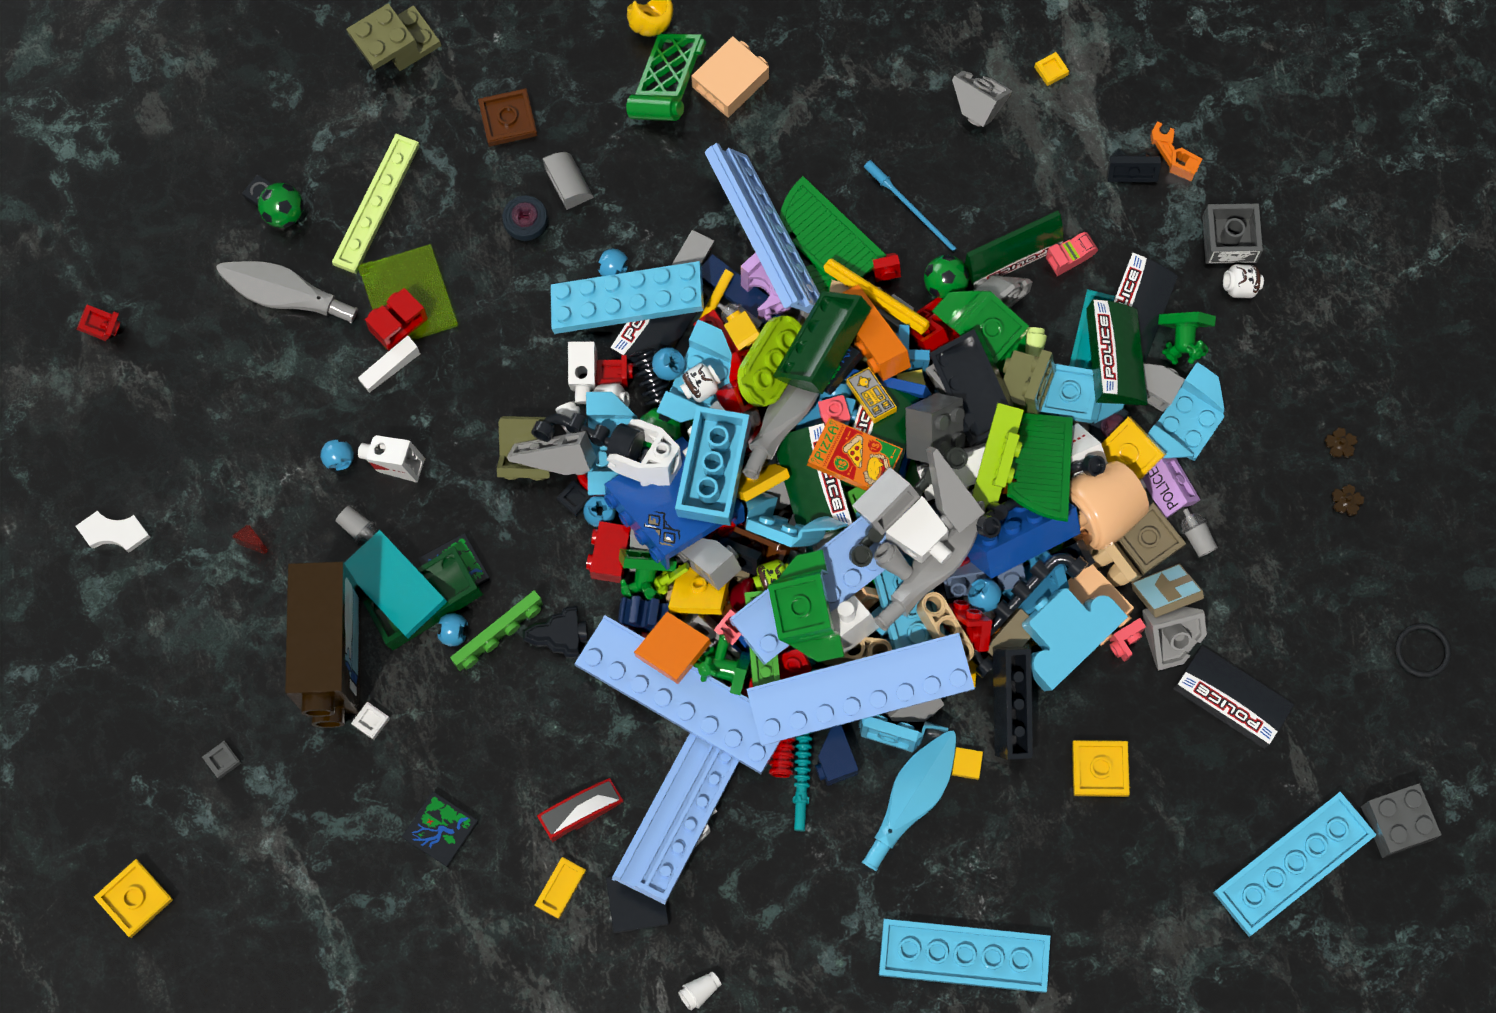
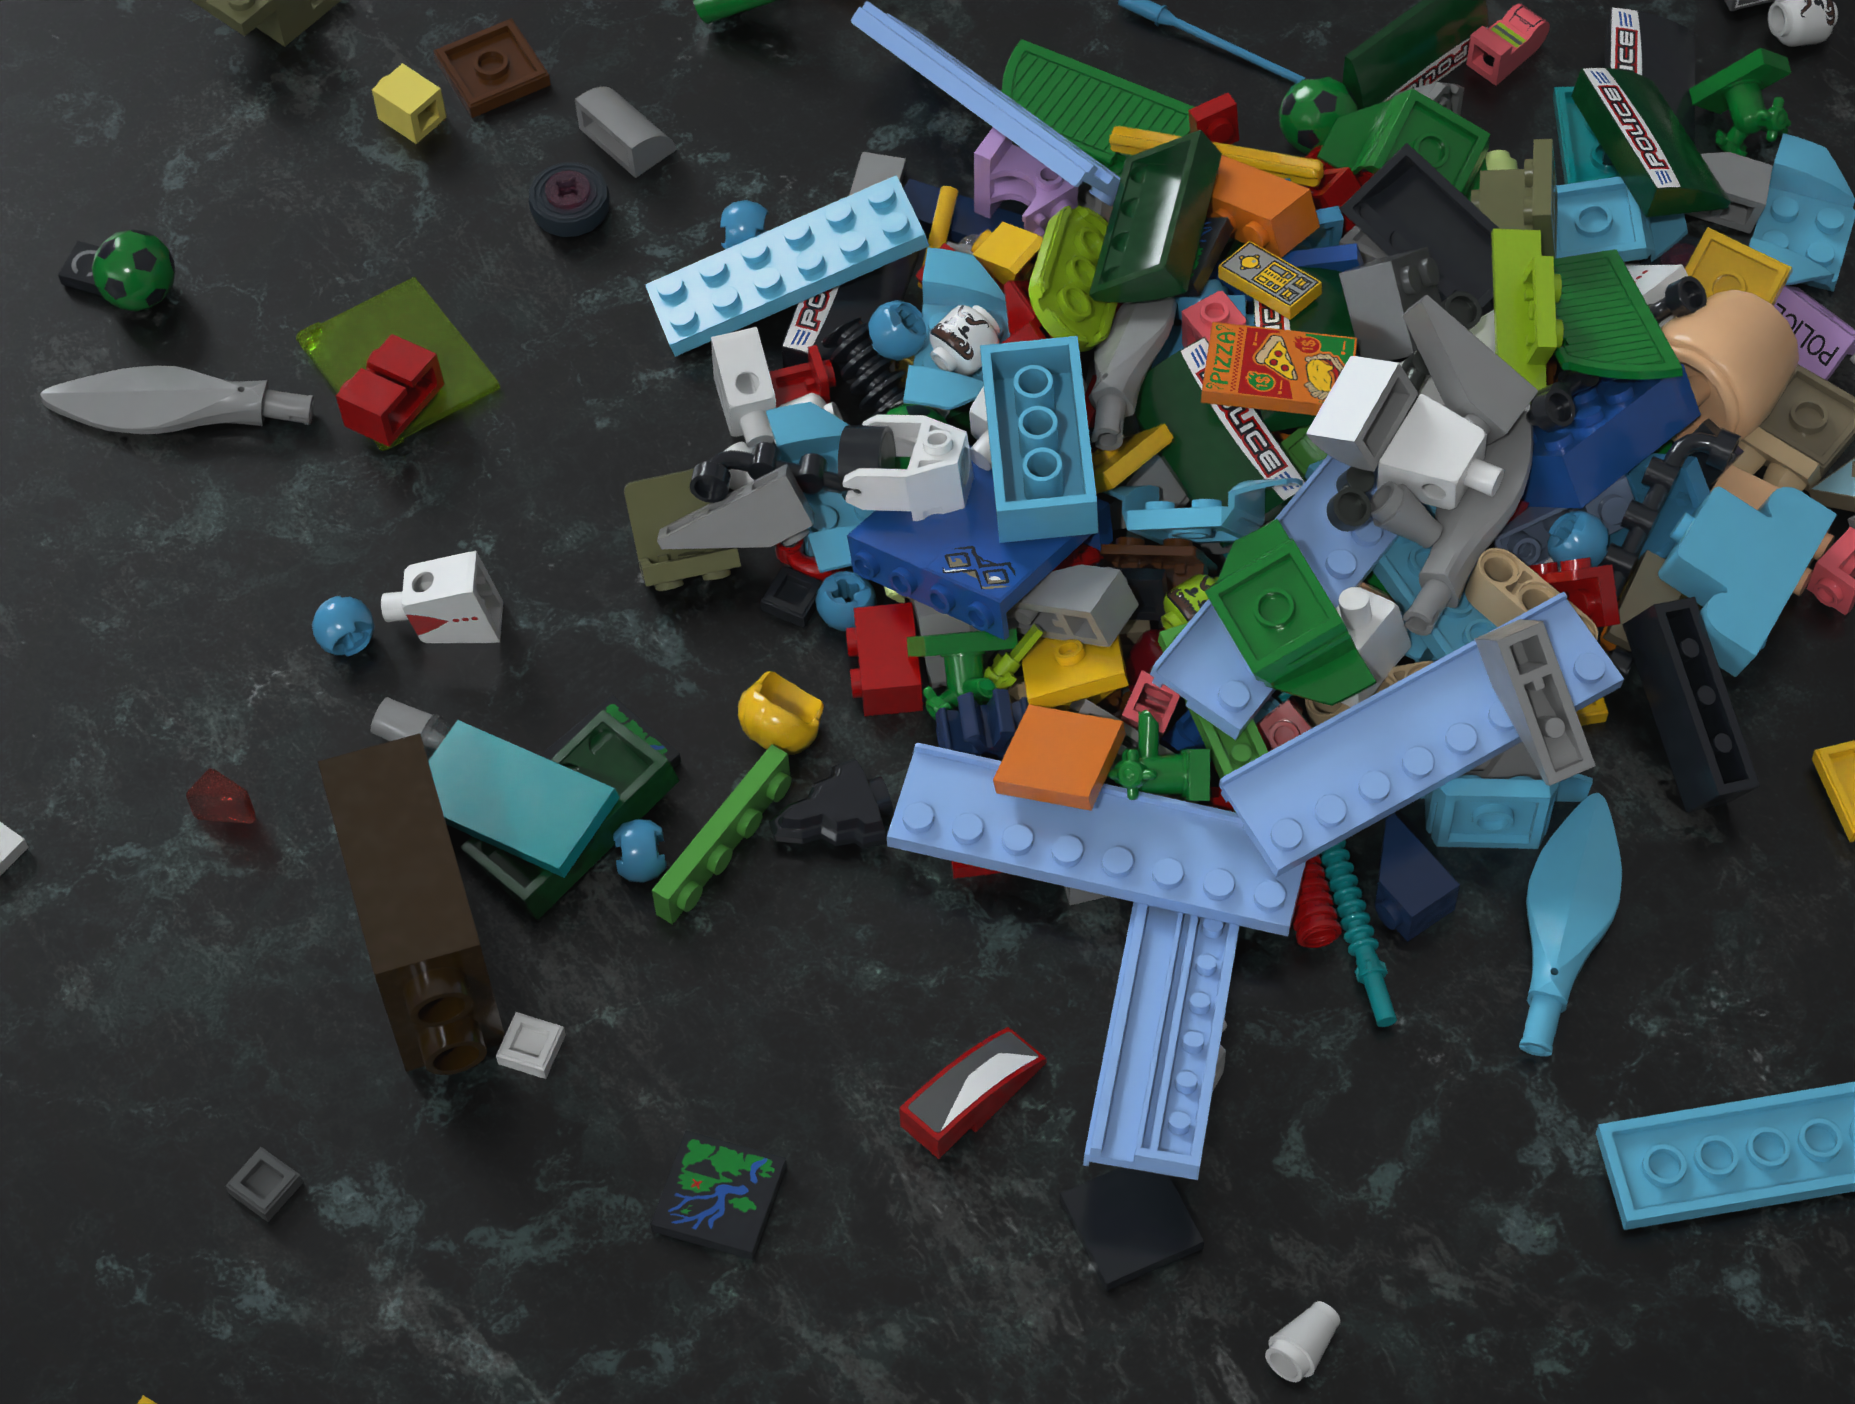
camera: 15 degrees left, 15 degrees down
(375, 203) = (299, 241): yellowish green tile -> none
(389, 364) = (397, 467): white piece -> none
(454, 132) = (409, 103): none -> light yellow brick
(545, 570) = (779, 714): none -> yellow hair
(560, 888) = (979, 1237): yellow tile -> none
(920, 693) = (1536, 698): none -> light grey slope
(967, 763) = (1643, 838): yellow tile -> none

